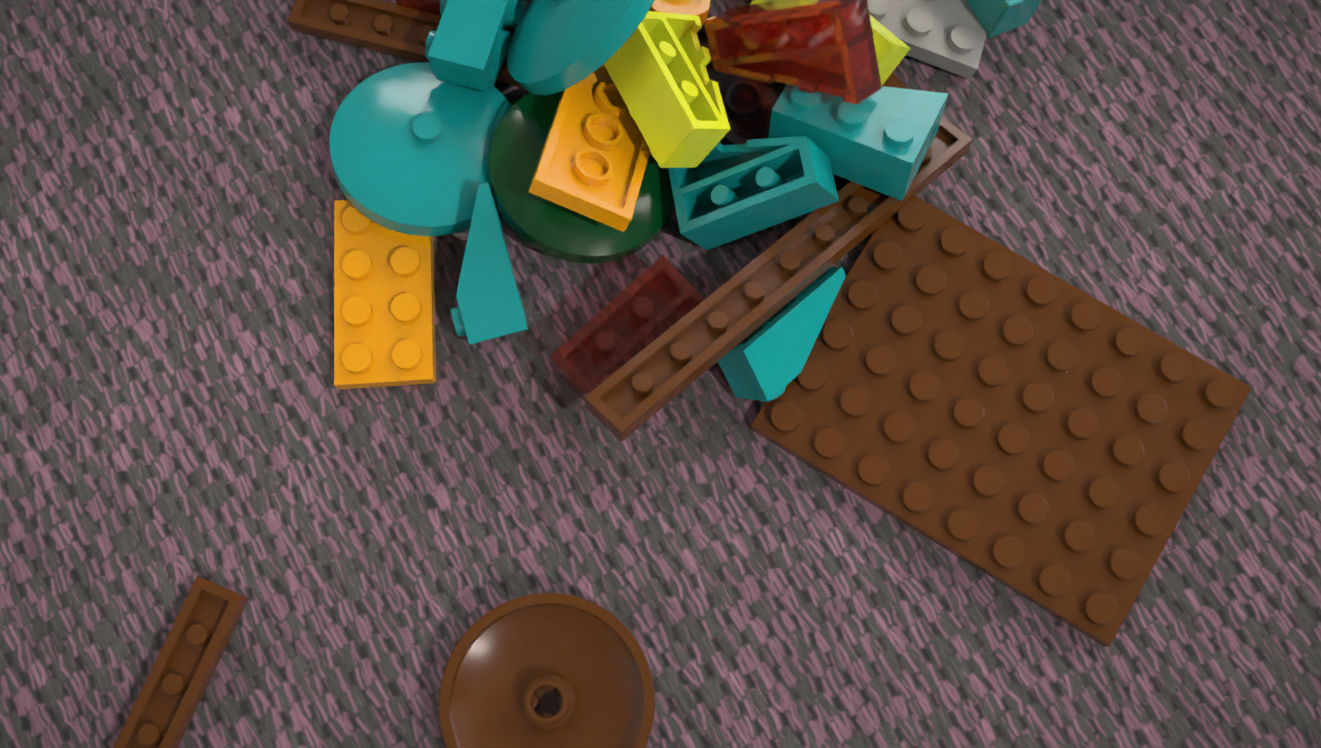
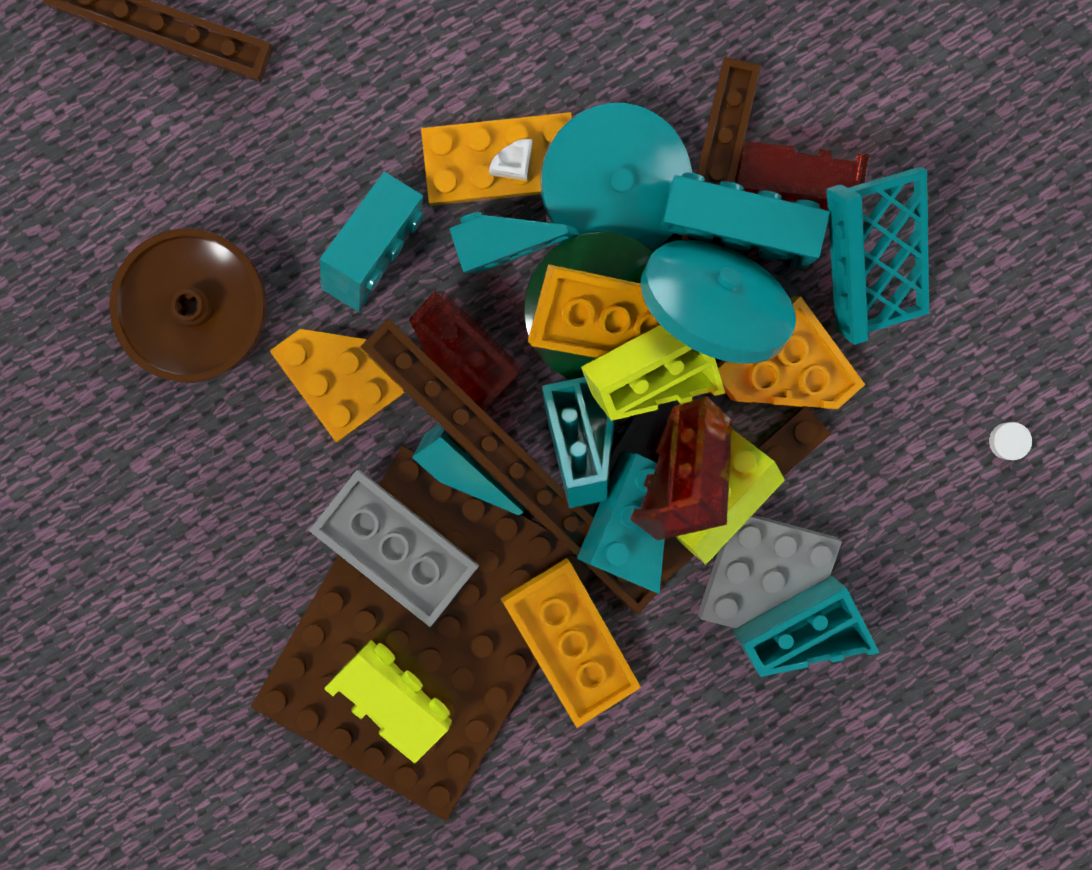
camera: 85 degrees right, 15 degrees up
(389, 265) = (513, 160): none -> white tile
(480, 448) = (370, 241): none -> teal wedge
(656, 503) = (336, 379): none -> light orange plate
(887, 430) = (394, 547): none -> light grey plate
(1009, 216) = (571, 642): none -> light orange plate
(1093, 436) = (392, 700): none -> neon yellow wedge

